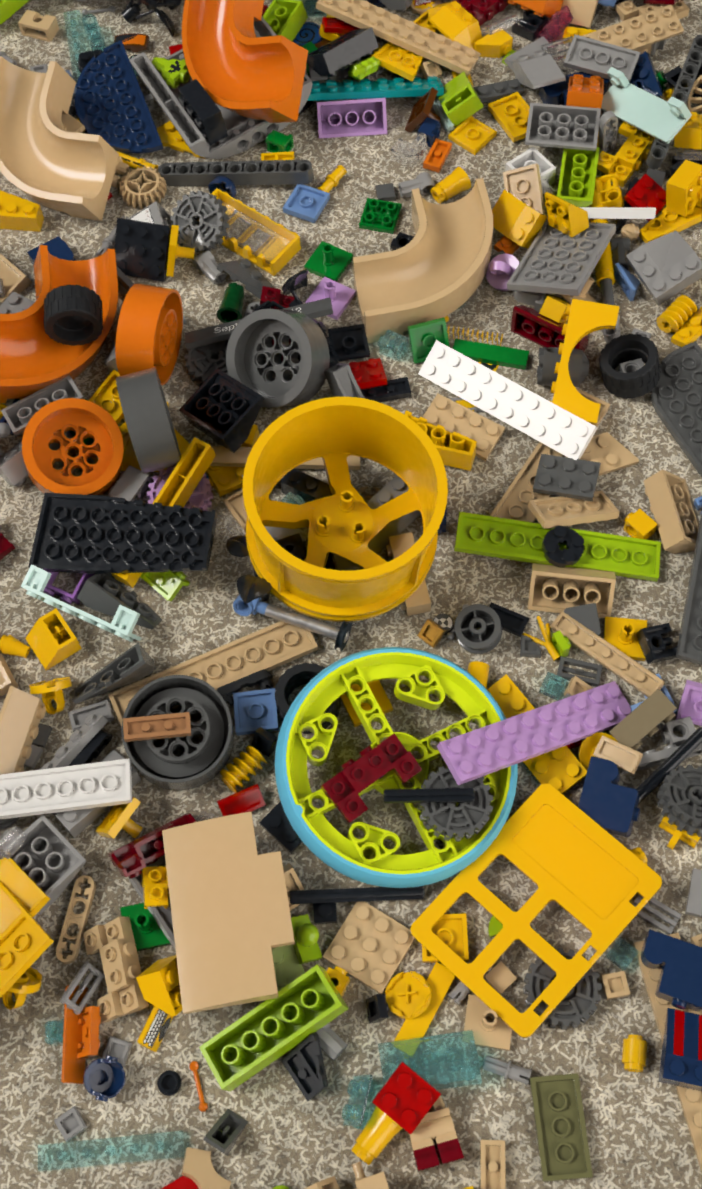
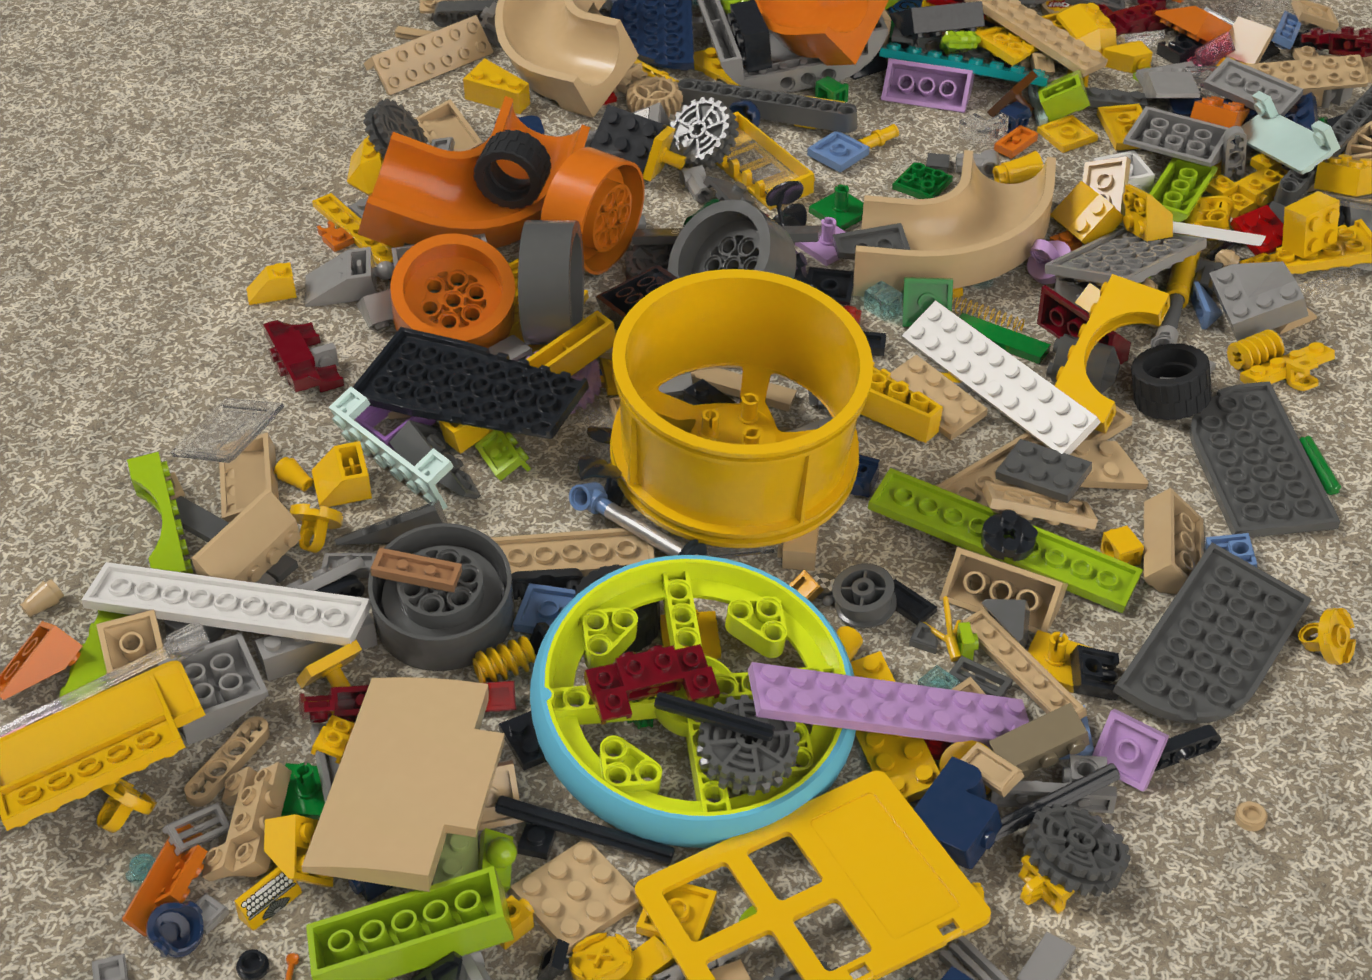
camera: 15 degrees right, 20 degrees down
(370, 296) = (884, 237): none -> dark grey wing

